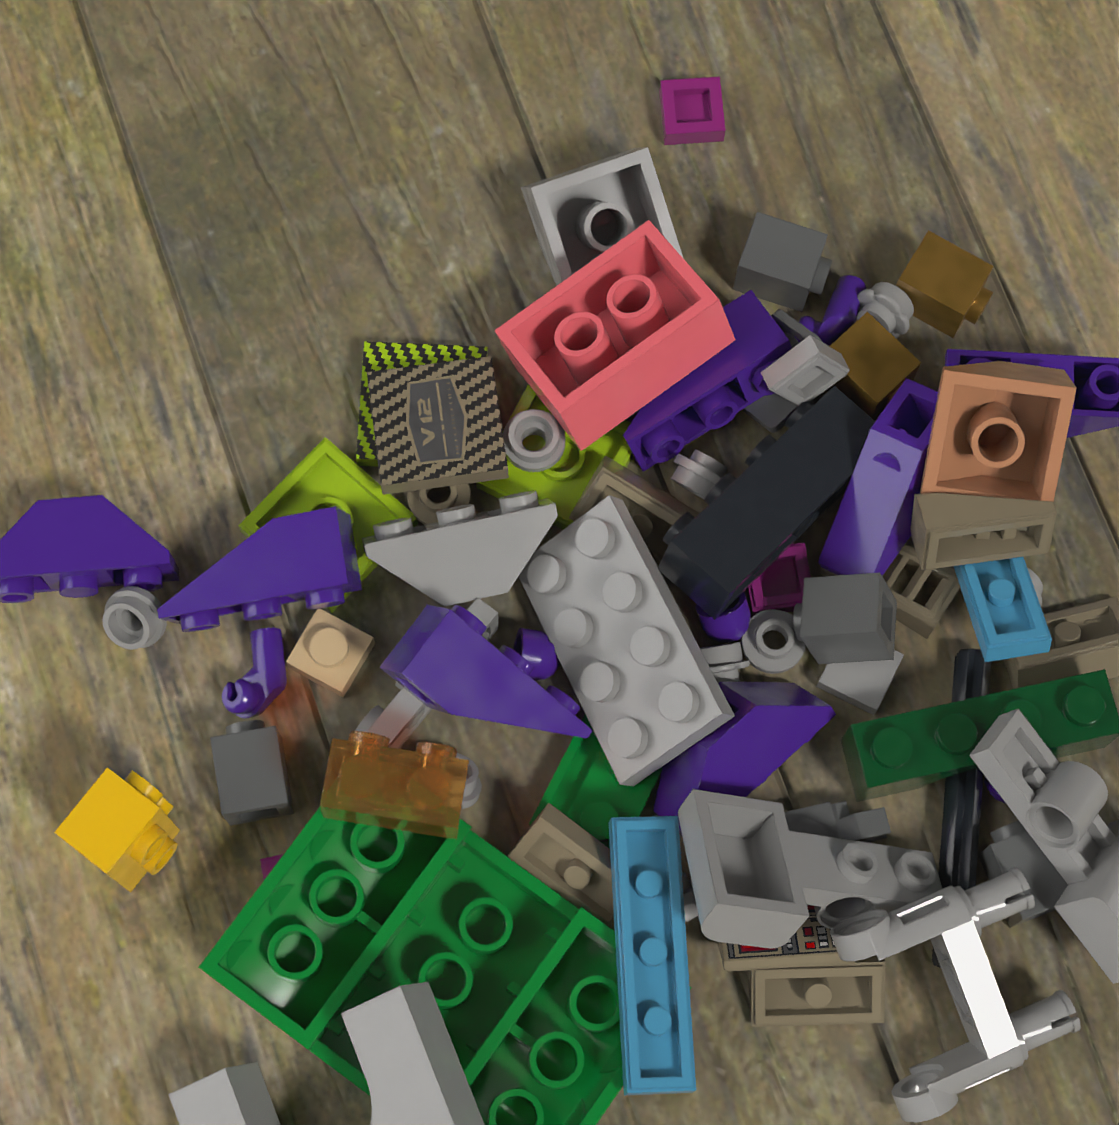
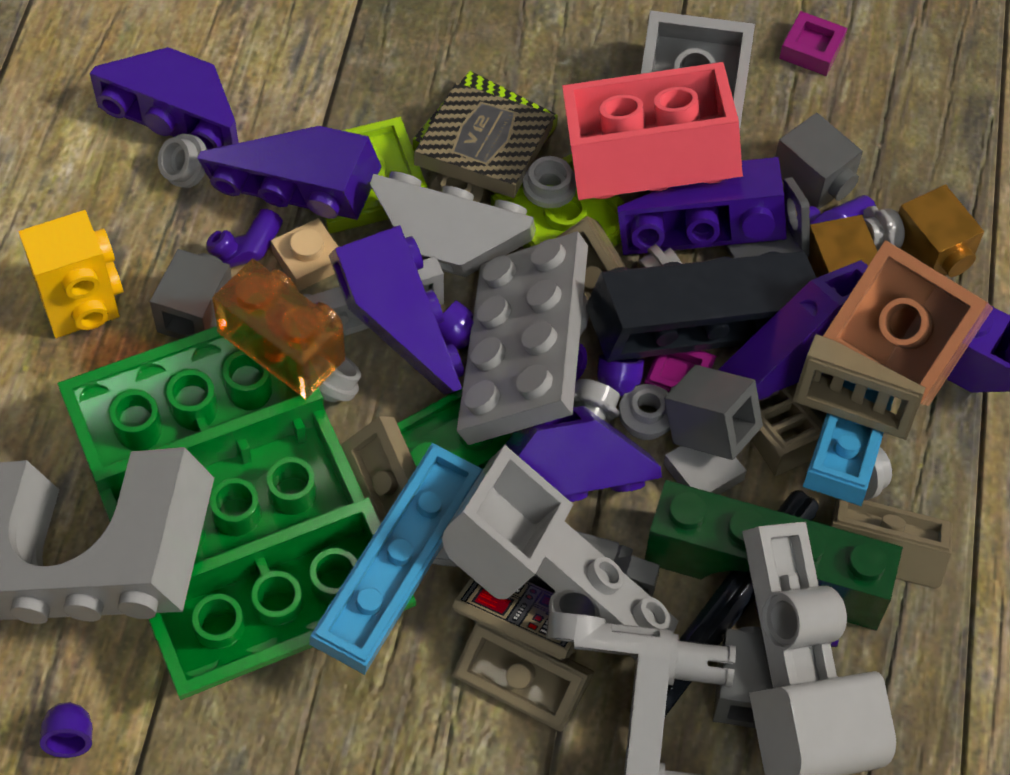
camera: 30 degrees right, 15 degrees down
(805, 371) = (785, 223): light grey tile -> none

